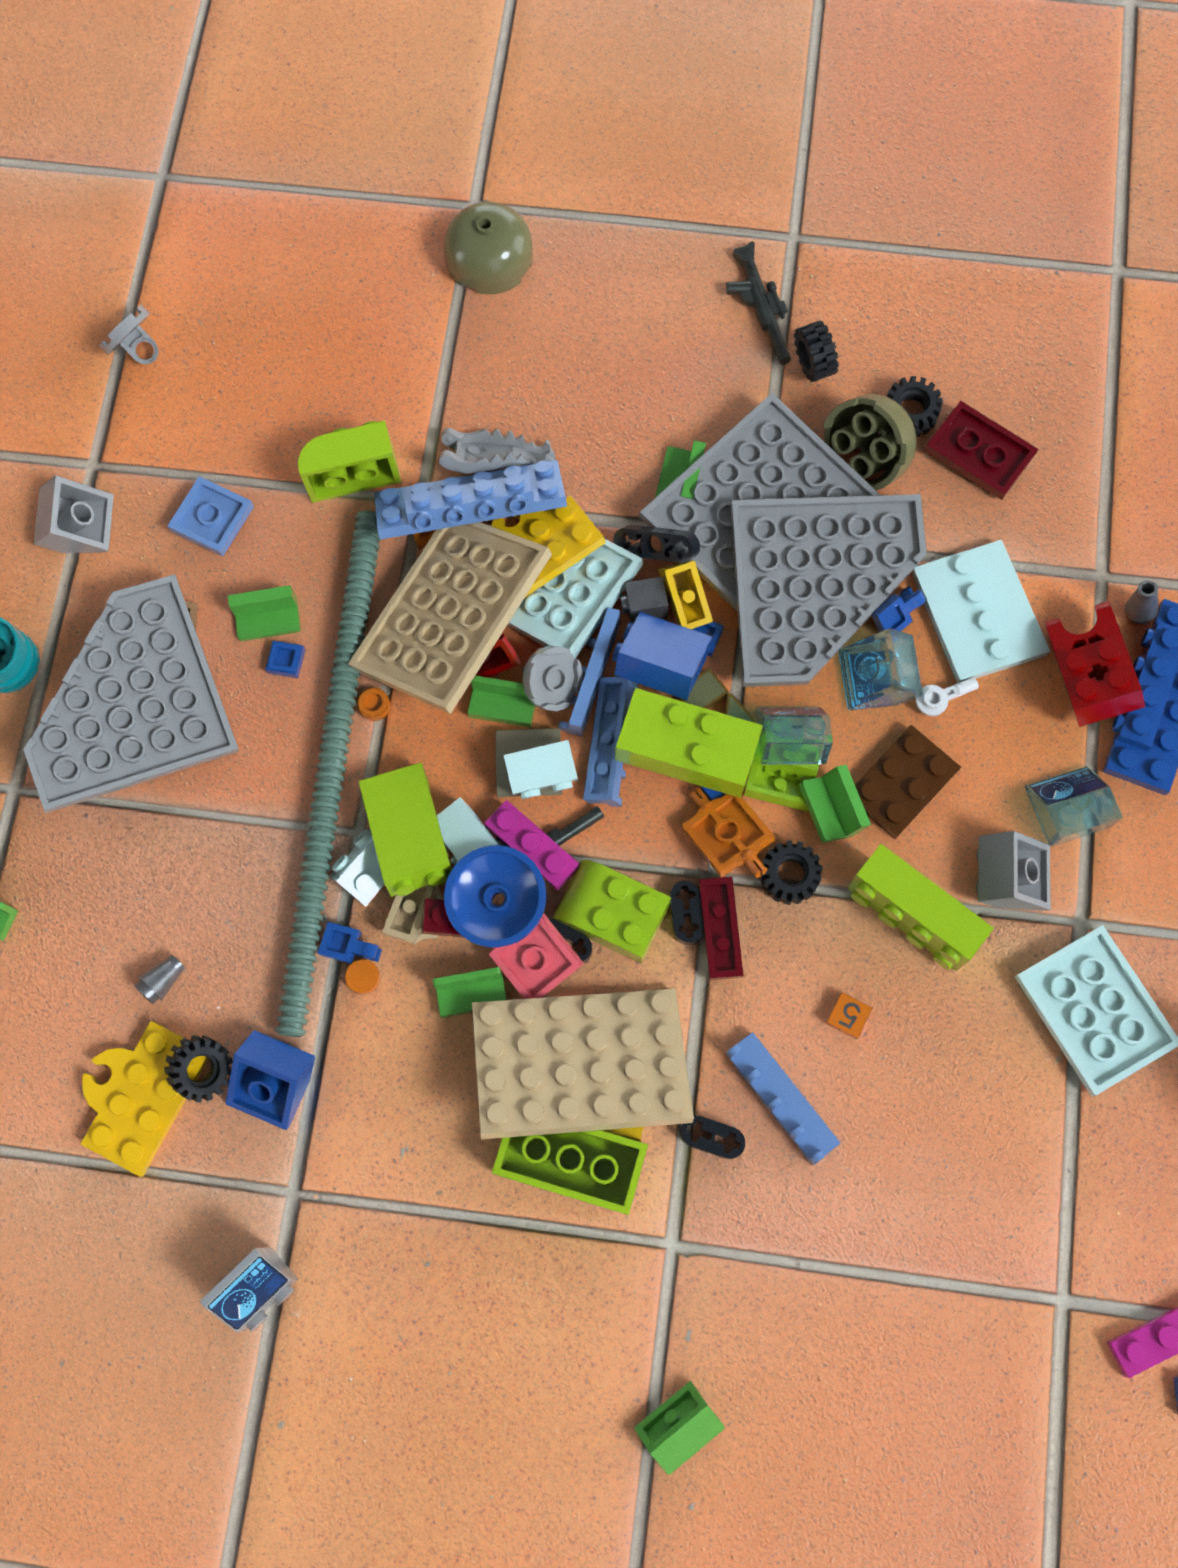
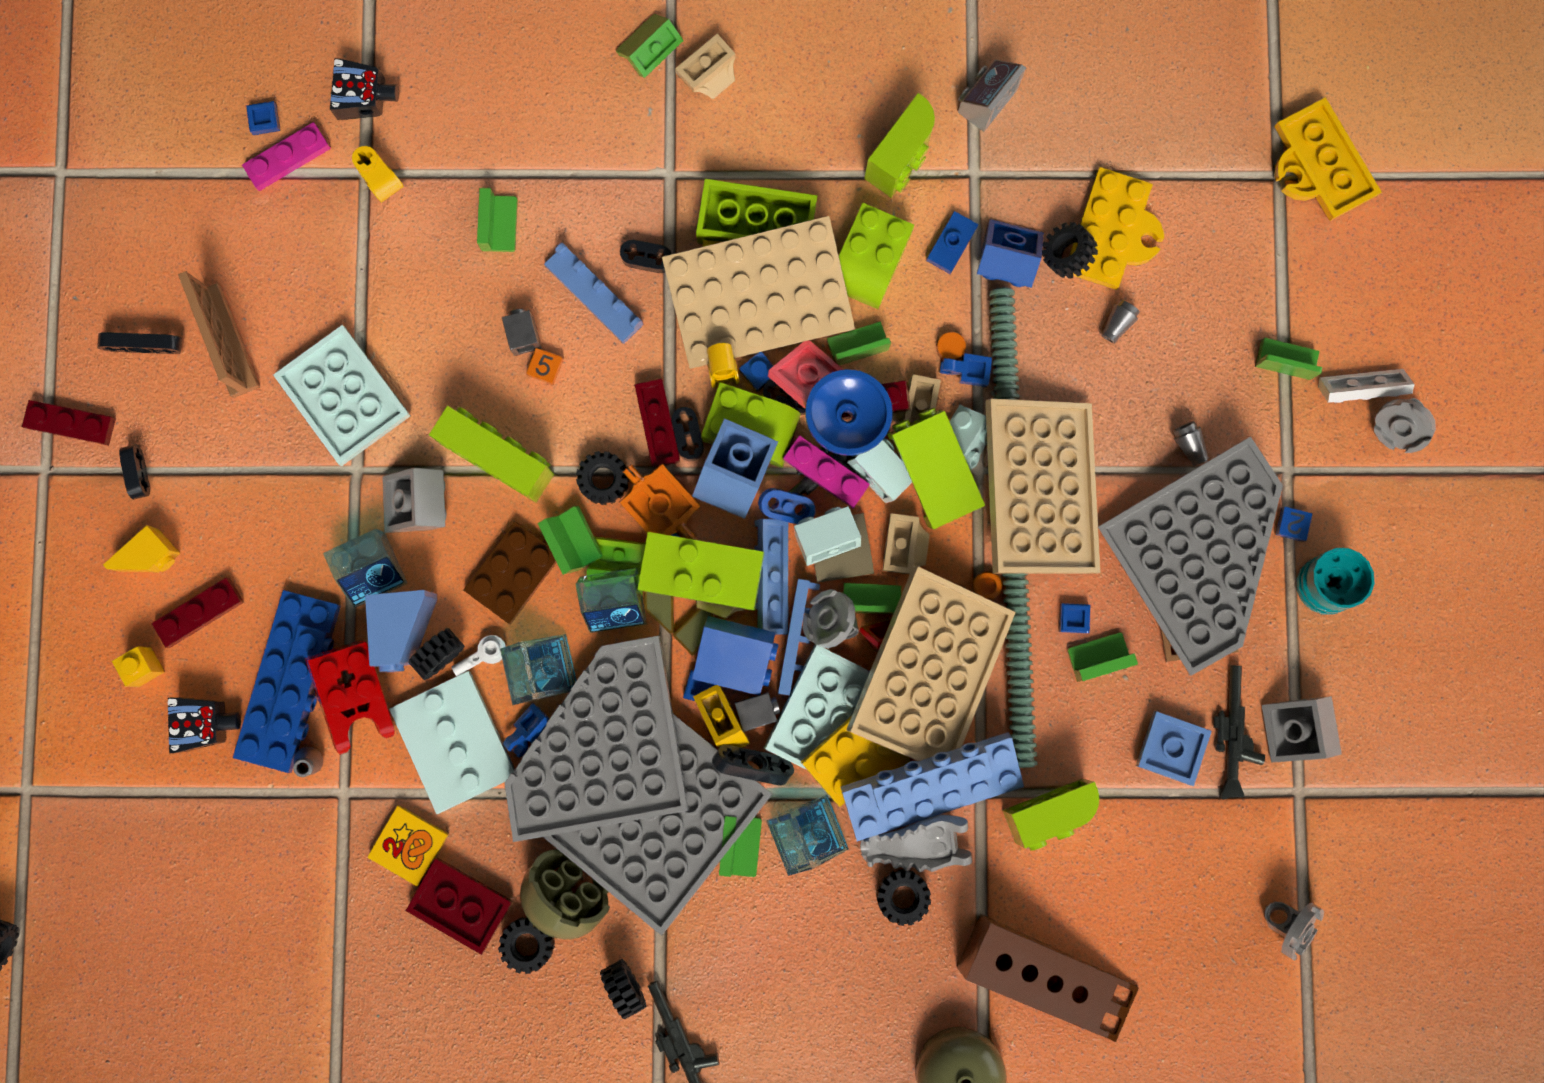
camera: 165 degrees right, 10 degrees up
(20, 727) = (1293, 524): none -> blue tile
(112, 830) = (1191, 441): none -> flat silver cone
(142, 514) = (1231, 728): none -> pearl dark grey piece
(290, 794) = (1042, 487): none -> tan plate
(337, 1105) = (952, 242): none -> blue plate
(373, 1227) = (902, 148): none -> lime brick
(399, 323) = (1004, 976): none -> reddish brown piece
(435, 1098) = (873, 254): none -> lime brick
(457, 755) = (905, 544): none -> tan slope
(514, 393) = (916, 910): none -> black tyre
(585, 810) = (785, 505): none -> blue plate
(594, 976) = (757, 371): none -> blue plate
(605, 1380) = (709, 68): none -> tan slope
(608, 474) = (807, 835): none -> clear light blue slope
(634, 853) = (734, 468): none -> medium blue slope
(636, 979) = (722, 364): none -> yellow piece
(874, 1058) = (521, 332): none -> flat silver brick
(895, 1207) = (496, 222): none -> bright green panel
(994, 695) = (436, 654): none -> black tyre
(1033, 514) = (408, 845): none -> yellow tile
(1041, 729) = (397, 626): none -> medium blue slope
(1045, 1285) = (377, 175): none -> yellow piece
(1067, 1413) = (359, 90): none -> torso

